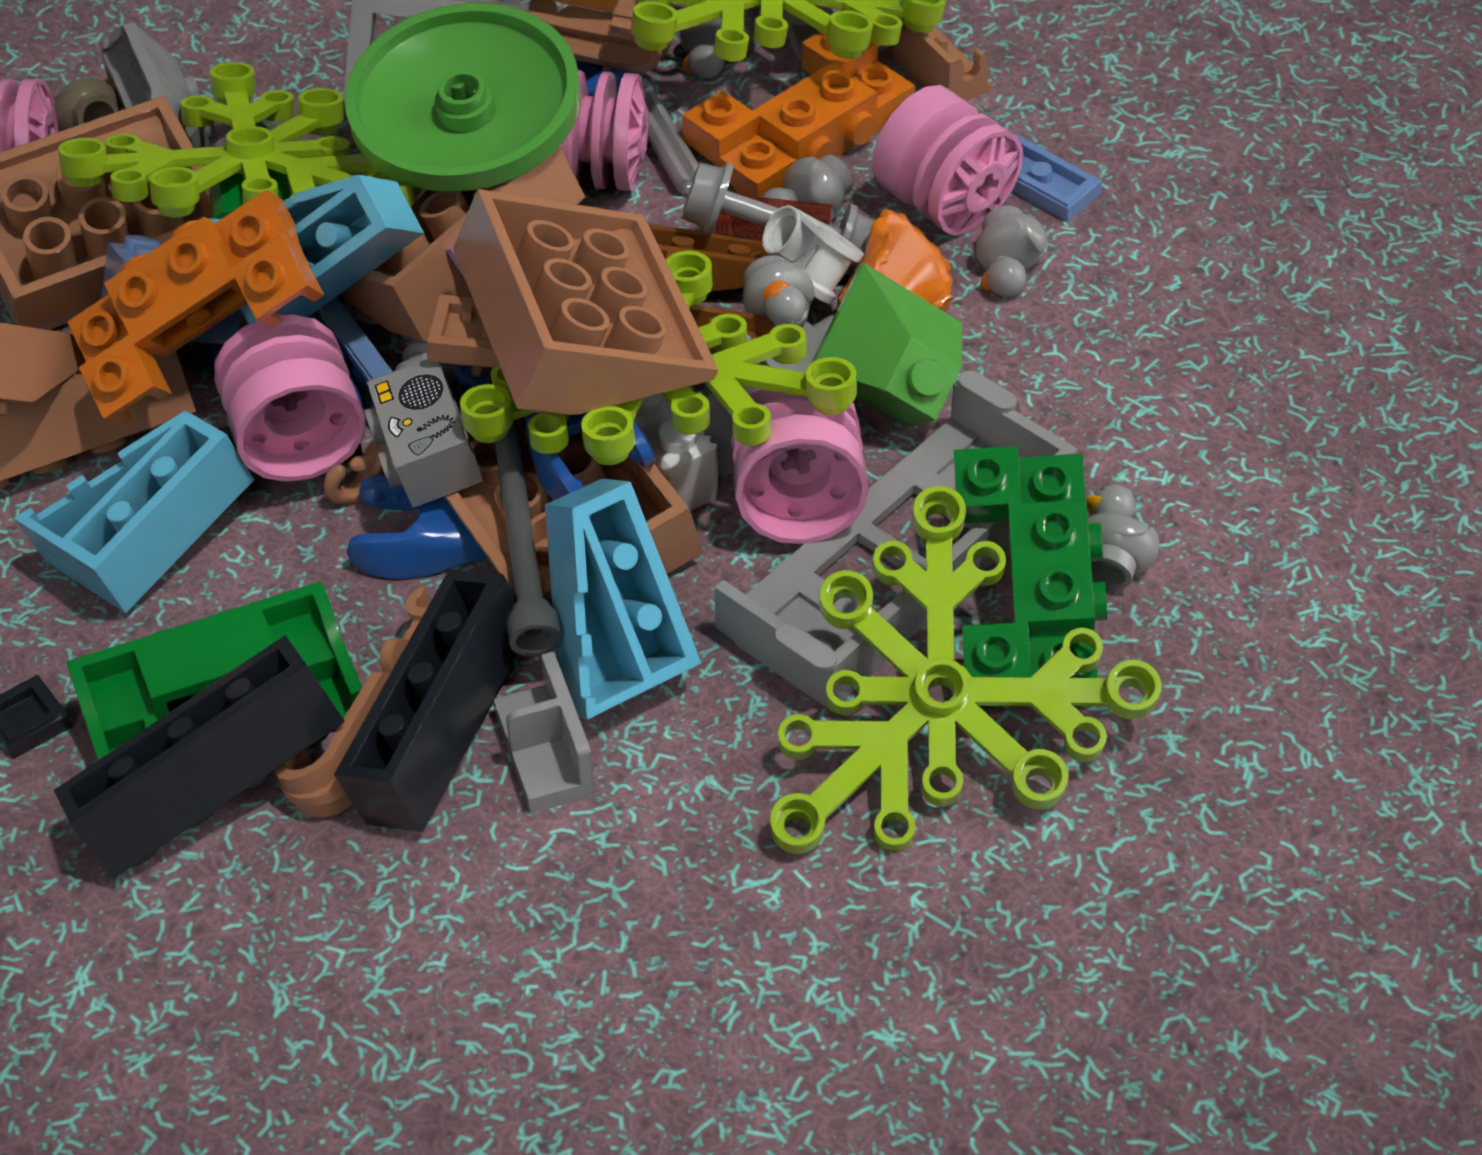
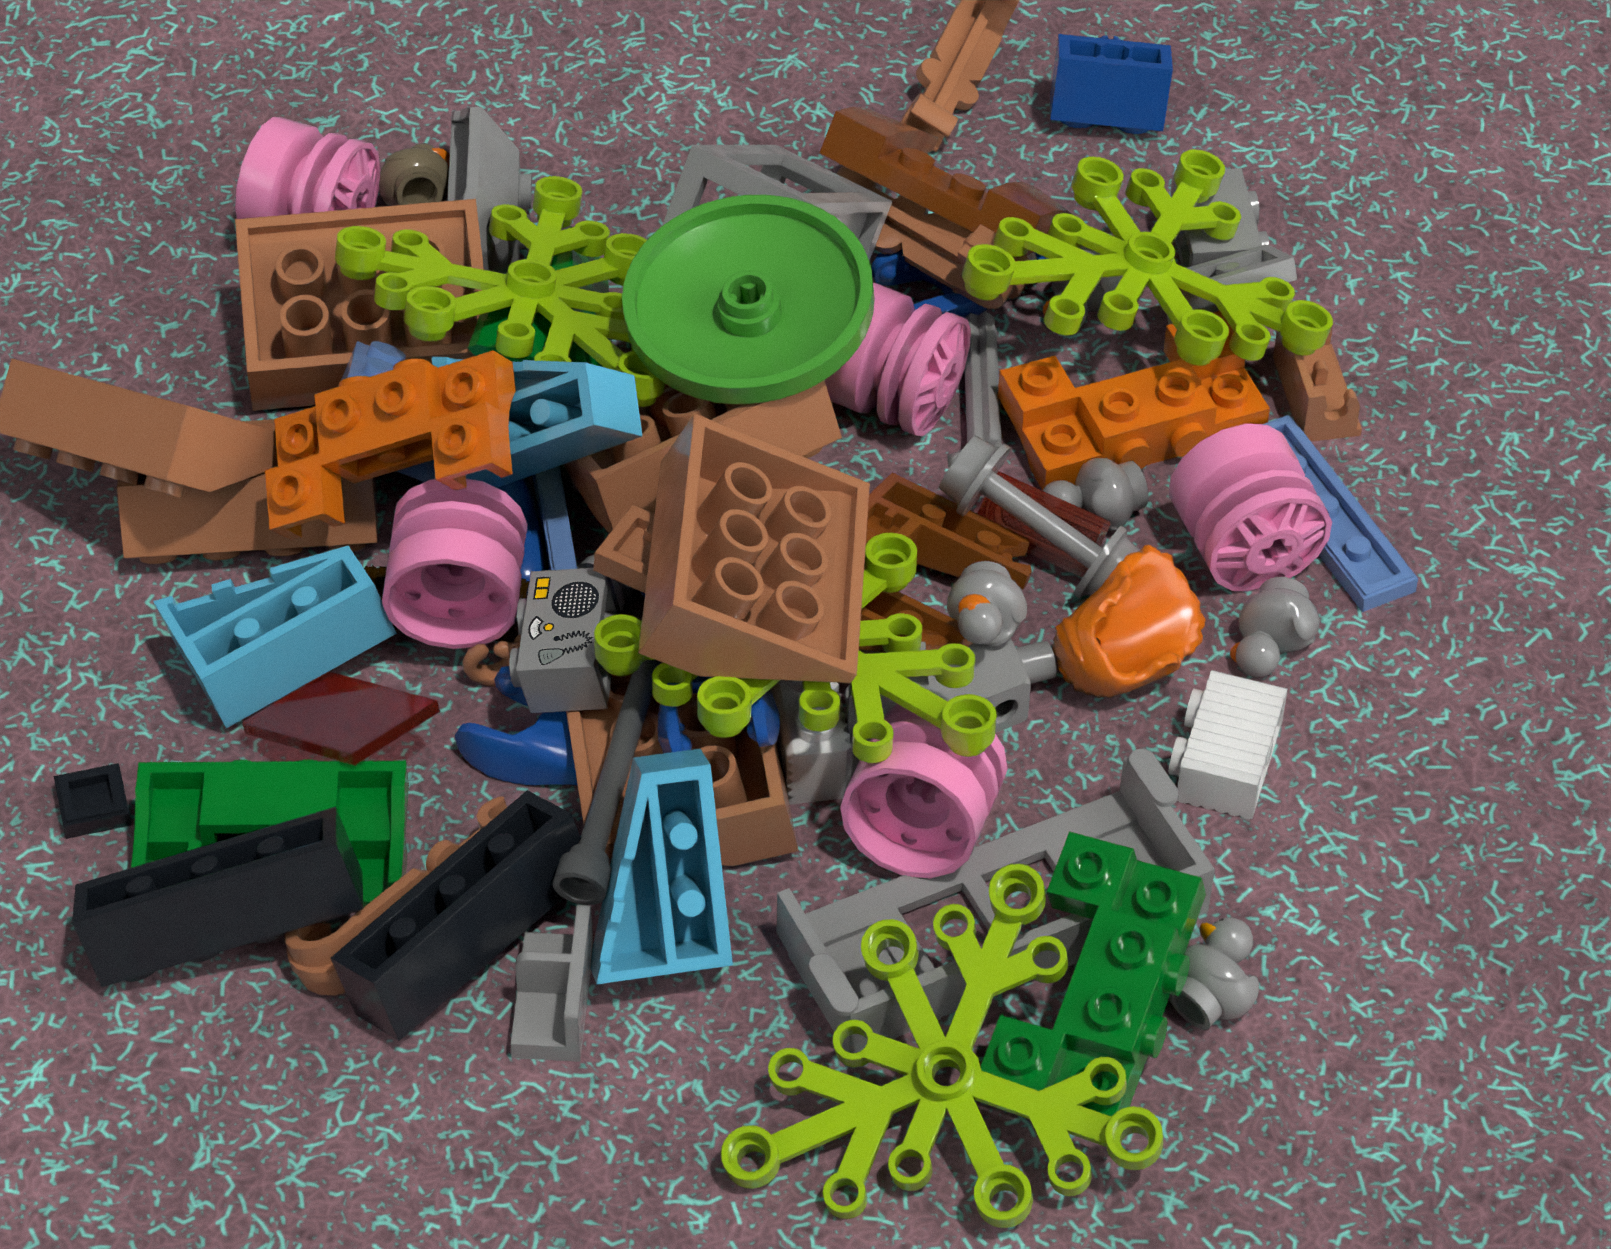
camera: 20 degrees right, 0 degrees up
(237, 567) = (341, 717): none -> clear red piece
(812, 247) = (1048, 567): white piece -> none
(898, 344) = (1081, 697): bright green slope -> none
(1025, 348) = (1229, 743): none -> white brick

